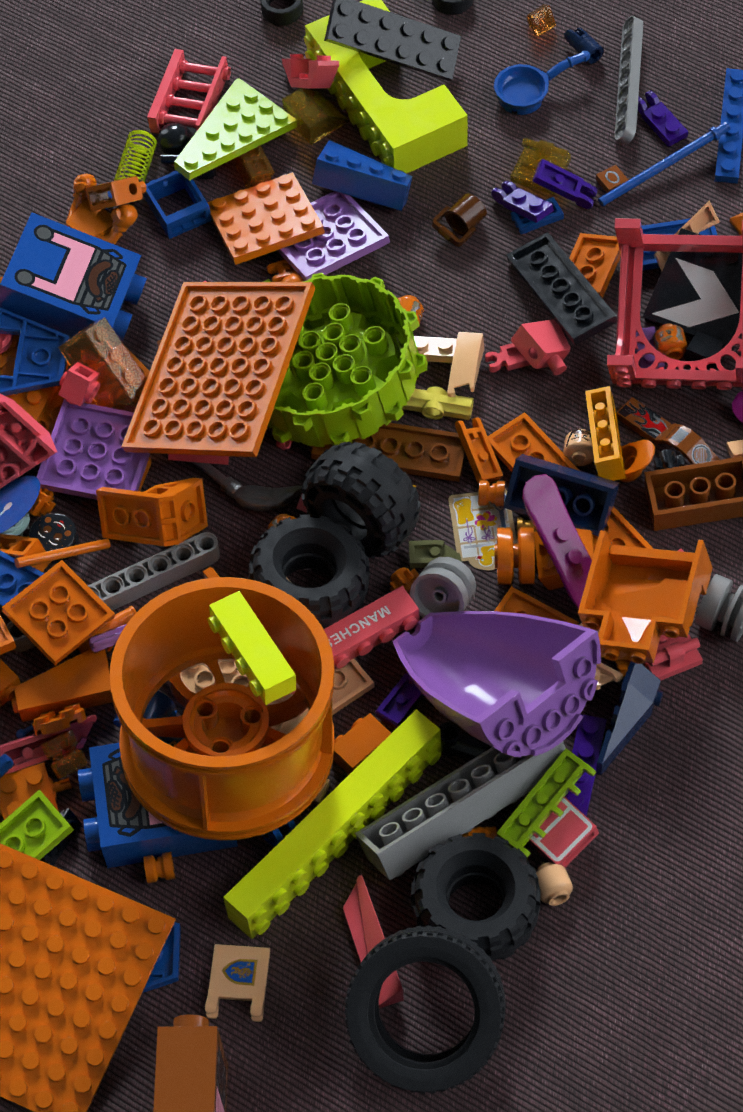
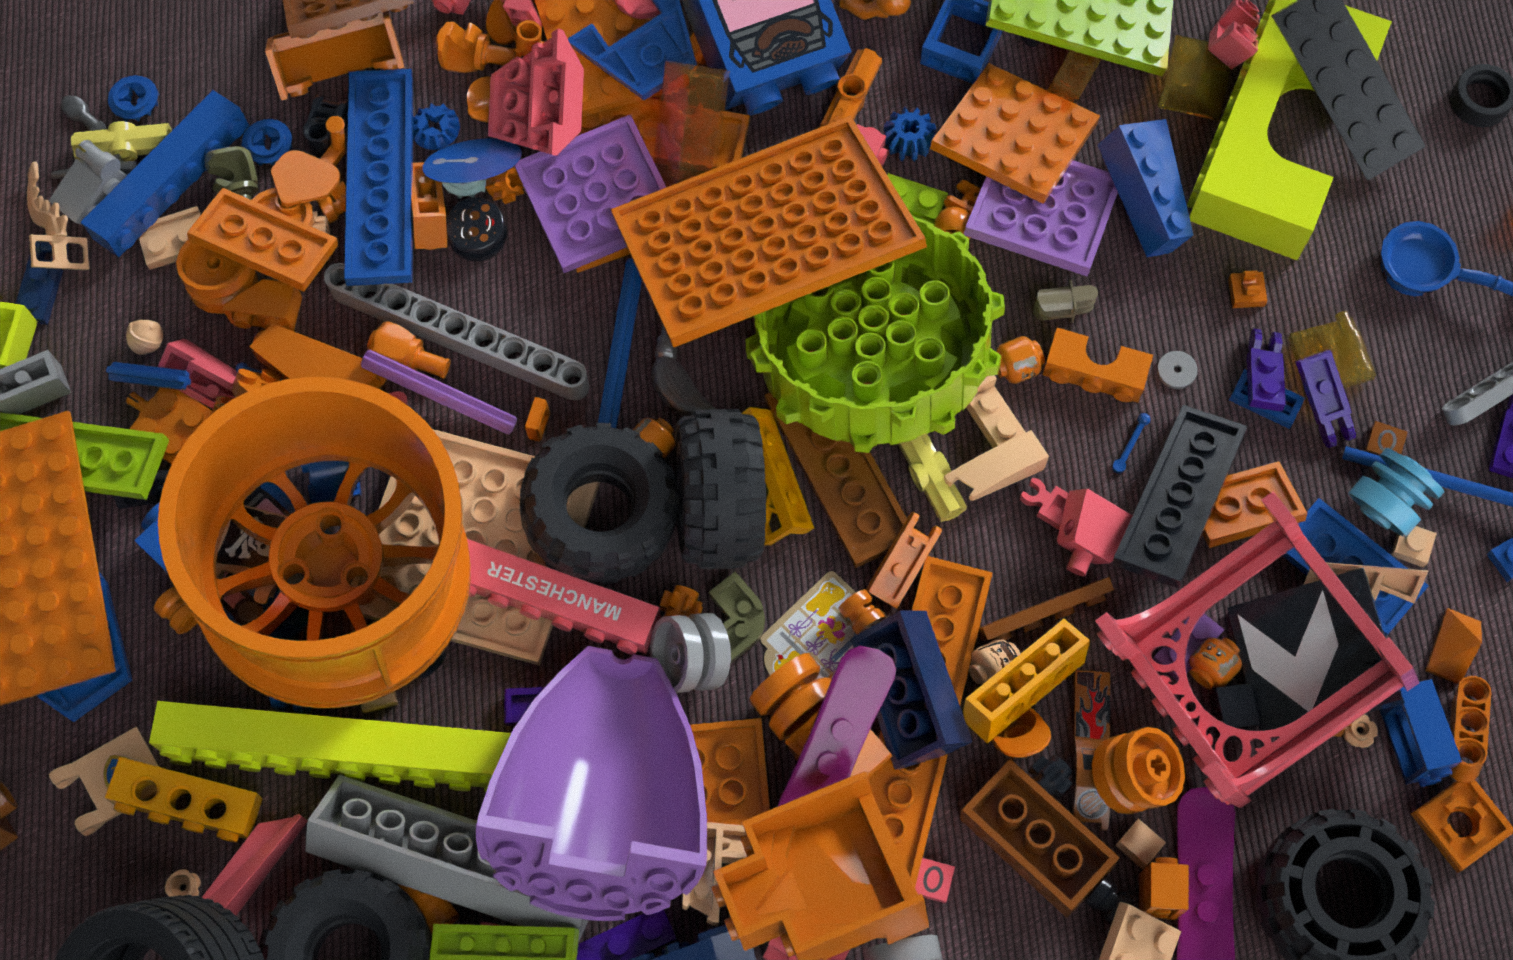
camera: 50 degrees right, 10 degrees up
(58, 612) = (368, 299): orange plate -> none
(62, 553) = (455, 250): orange bar -> none
(79, 384) = (647, 114): coral brick -> none
(157, 281) = (856, 80): none -> orange piece
(157, 516) = (567, 308): orange bracket -> none
(213, 268) = (909, 134): none -> blue gear
(214, 517) = (620, 345): none -> blue axle
(252, 648) = (344, 525): neon yellow brick -> none
(297, 924) = (133, 777): none -> light orange brick
(339, 976) = (182, 877): none -> light nougat plate
(359, 742) = (455, 703): orange brick -> none
(392, 266) = (1065, 302): none -> dark tan arm
(431, 290) = (1070, 364): none -> orange arch
(461, 218) = (1192, 324): reddish brown piece -> none
(464, 179) = (1247, 289): none -> orange tile
(480, 239) = (1182, 361): none -> light grey wheel
(513, 311) = (1119, 465): none -> blue hinge
(571, 395) = (1059, 606): none -> dark orange plate
(648, 188) = (1399, 488): none -> medium azure wheel
(681, 207) = (1415, 547): none -> light nougat plate
(703, 415) = (1138, 771): none -> orange wheel

